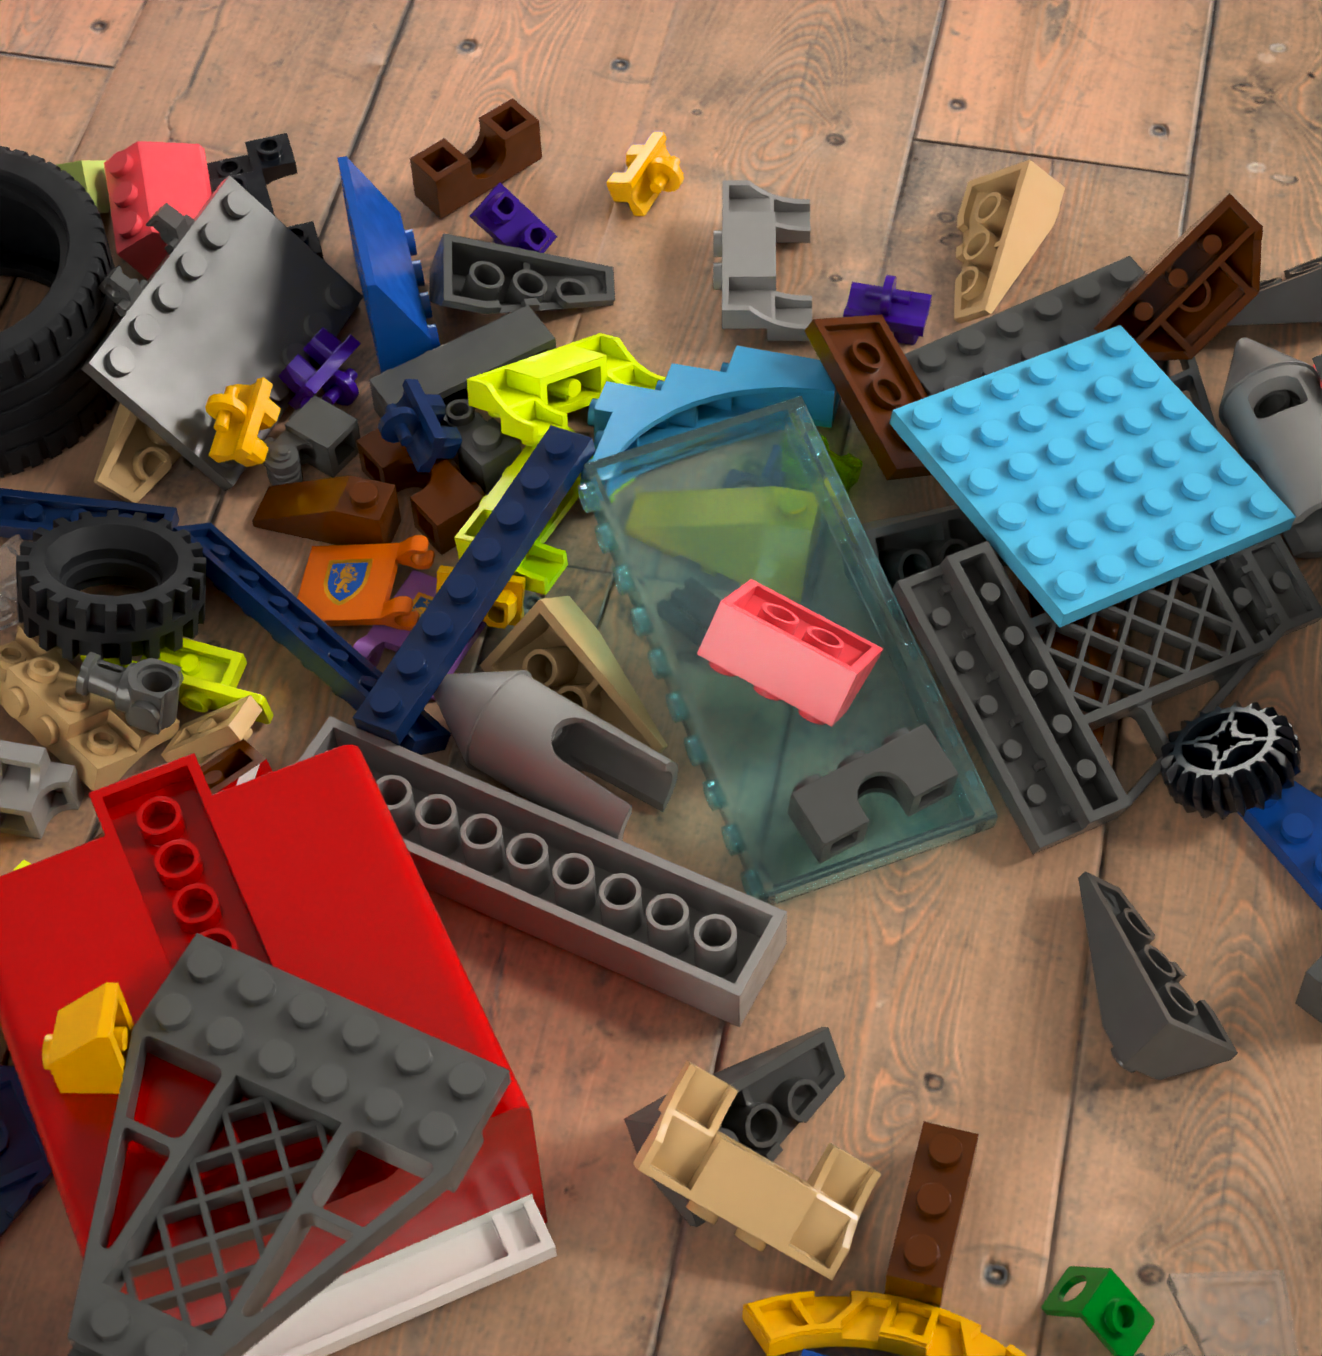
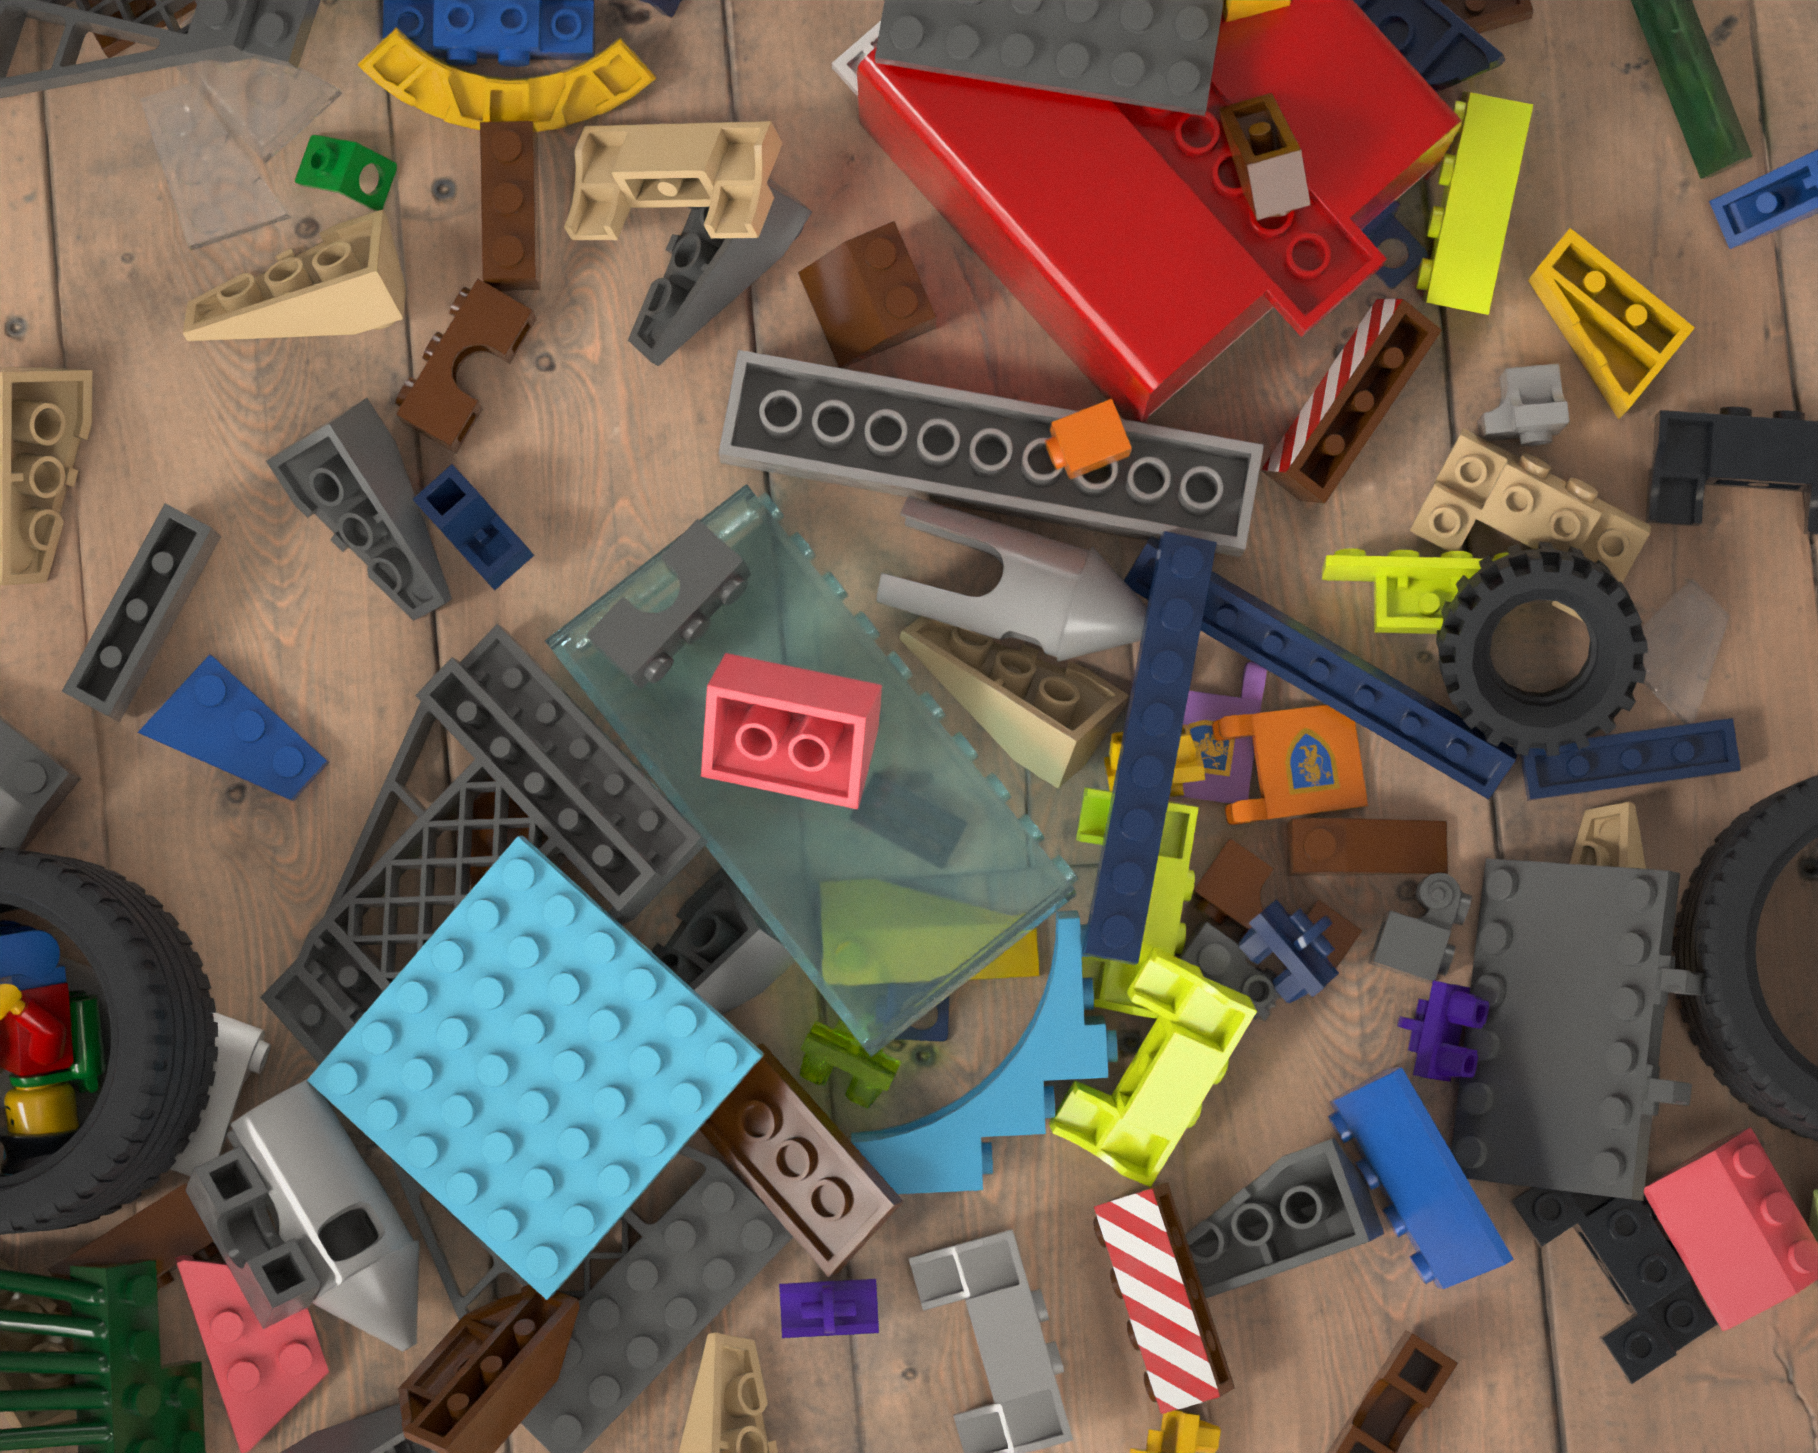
camera: 160 degrees right, 30 degrees up
(142, 691) = (1460, 518): dark grey connector -> none
(158, 891) = (1265, 156): none -> reddish brown slope
(214, 731) = (1365, 515): tan plate -> none
(239, 418) = (1494, 906): yellow hips -> none
(434, 817) = (1088, 440): none -> orange brick
(449, 366) = (1285, 1082): dark grey brick -> none
(511, 222) = (1302, 1315): dark purple hips -> none
(594, 1043) = (868, 295): none -> reddish brown slope
(619, 261) = (1163, 1298): none -> brick
(1040, 934) = (473, 527): none -> dark blue brick
(1051, 1054) = (482, 323): none -> reddish brown arch
(1150, 1197) = (329, 290): none -> tan wedge
(1230, 760) = (327, 797): black gear -> none

